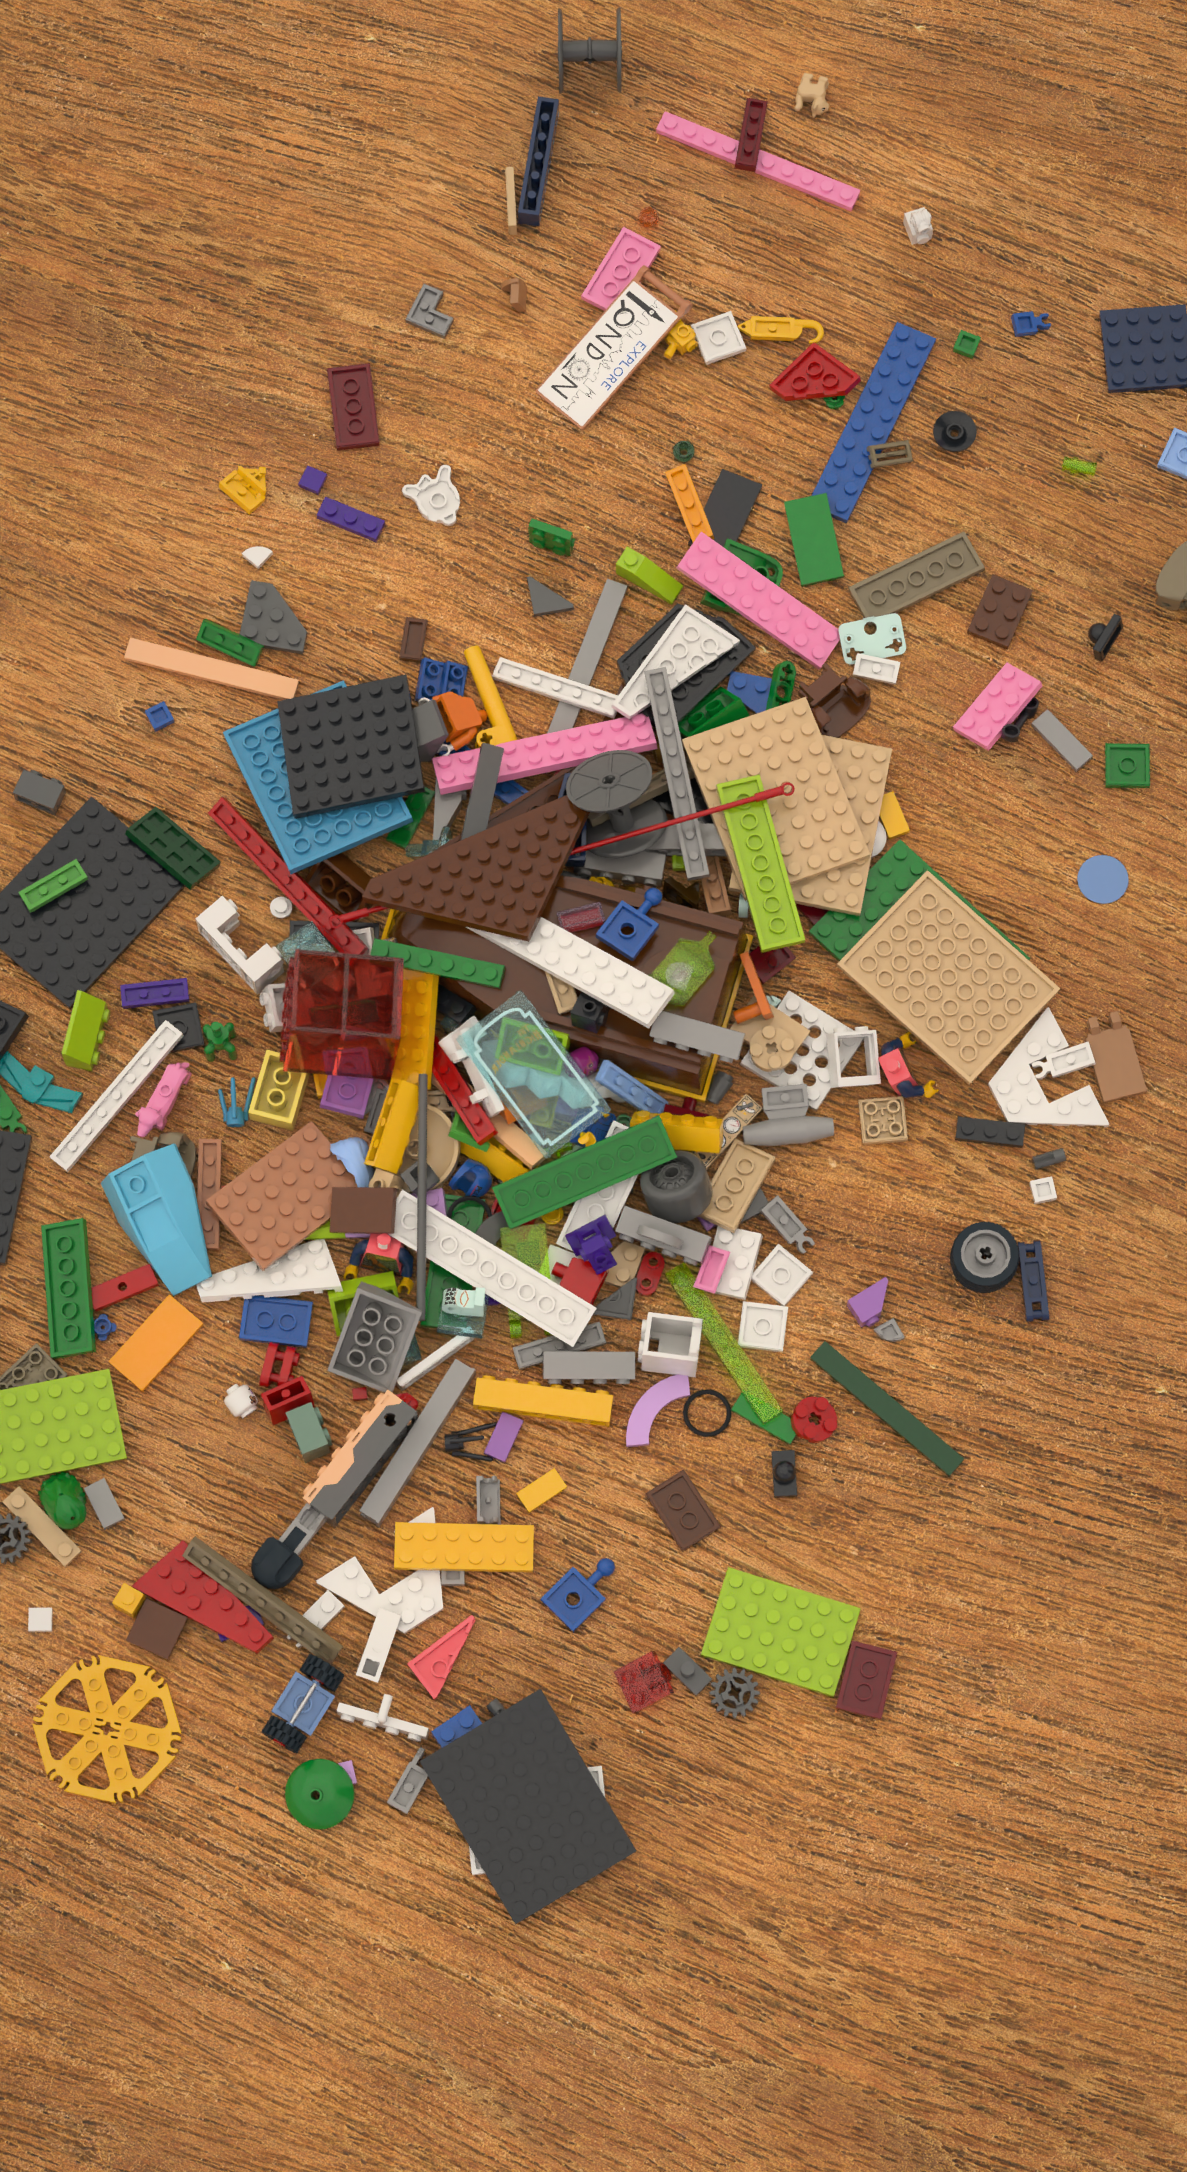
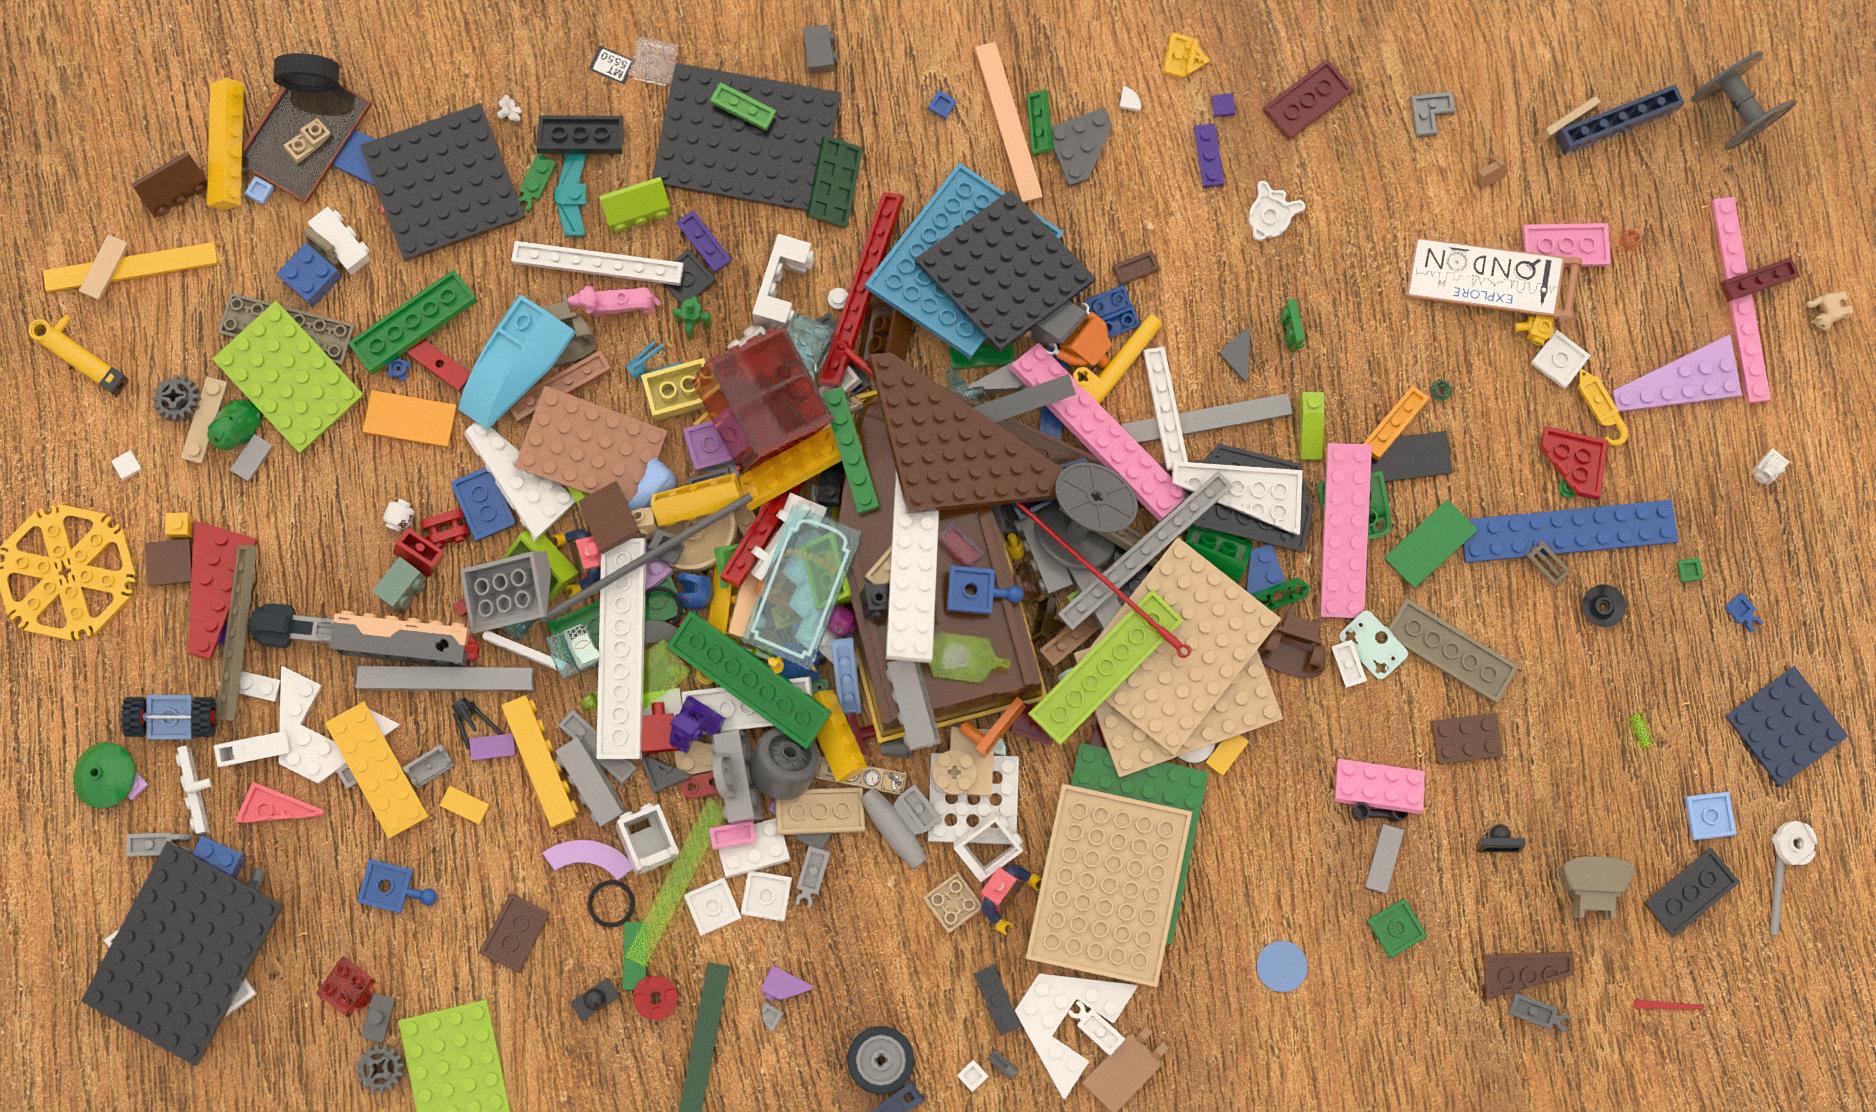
camera: 50 degrees right, 5 degrees up
(803, 238) = (1695, 378): none -> lavender wing

